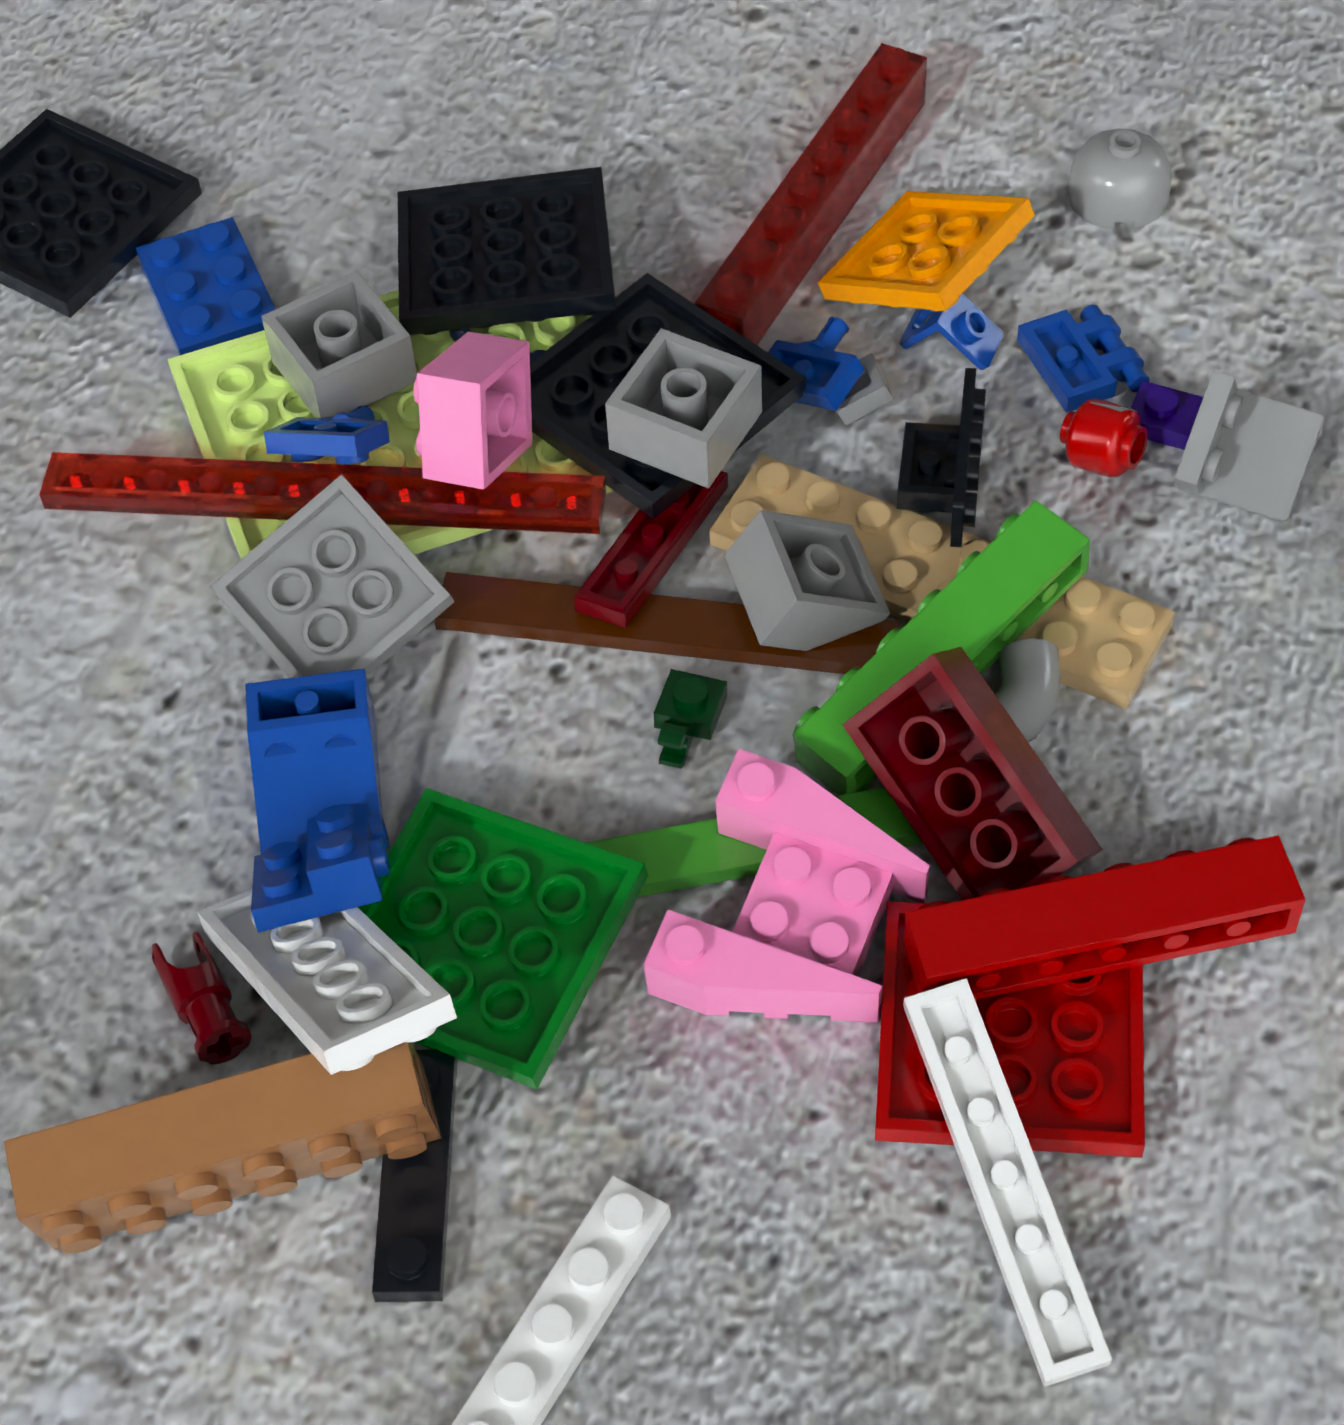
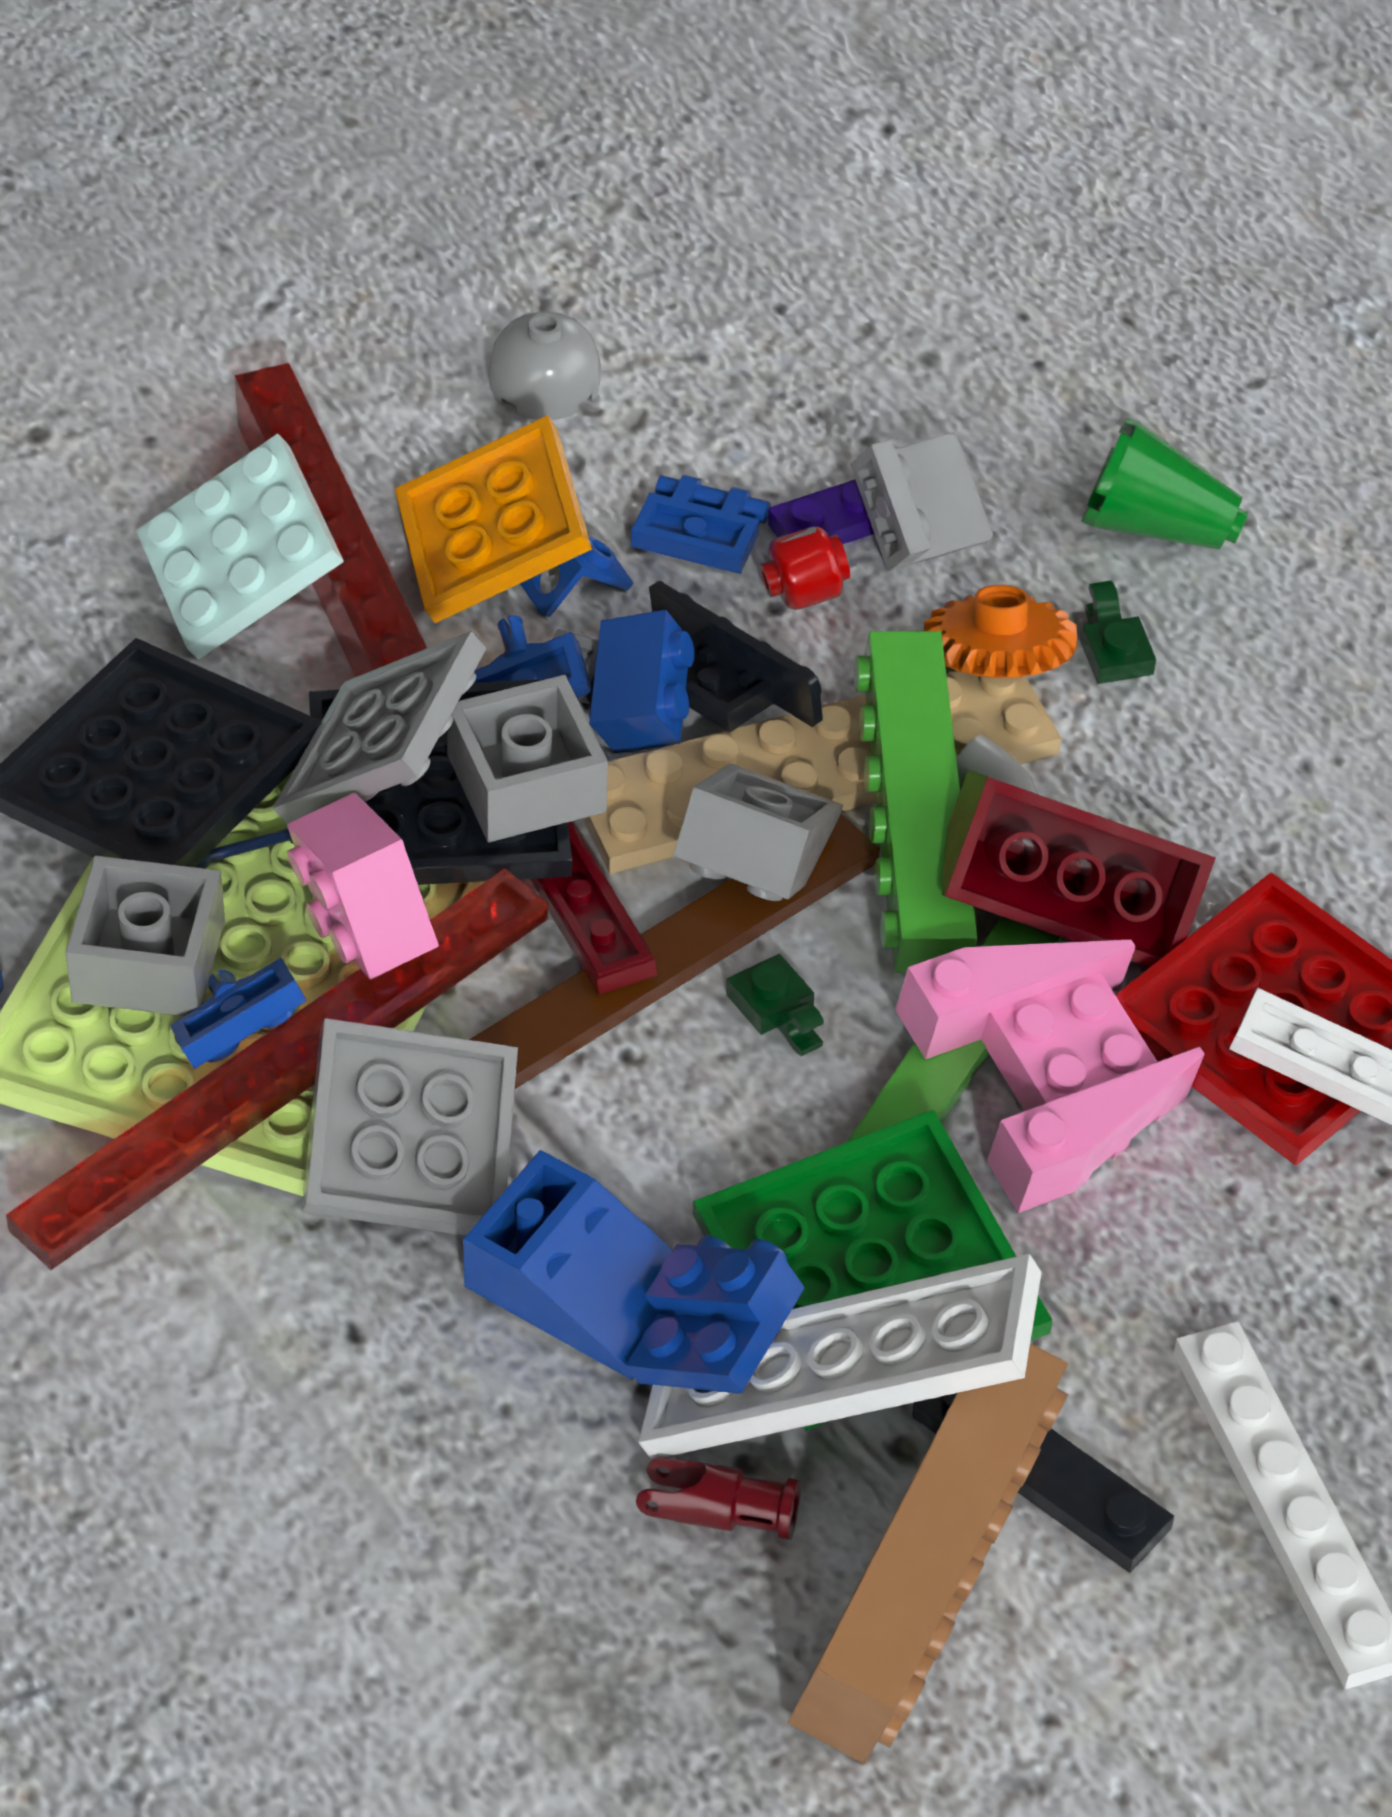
camera: 55 degrees left, 5 degrees down
(613, 318) = (382, 727): none -> light grey plate
(745, 155) = (238, 546): none -> light aqua plate
(871, 426) = (641, 681): none -> blue brick
(1106, 919) = (1266, 892): red brick -> none
(1182, 590) = (1003, 633): none -> orange gear
(1274, 665) = (1114, 645): none -> dark green plate

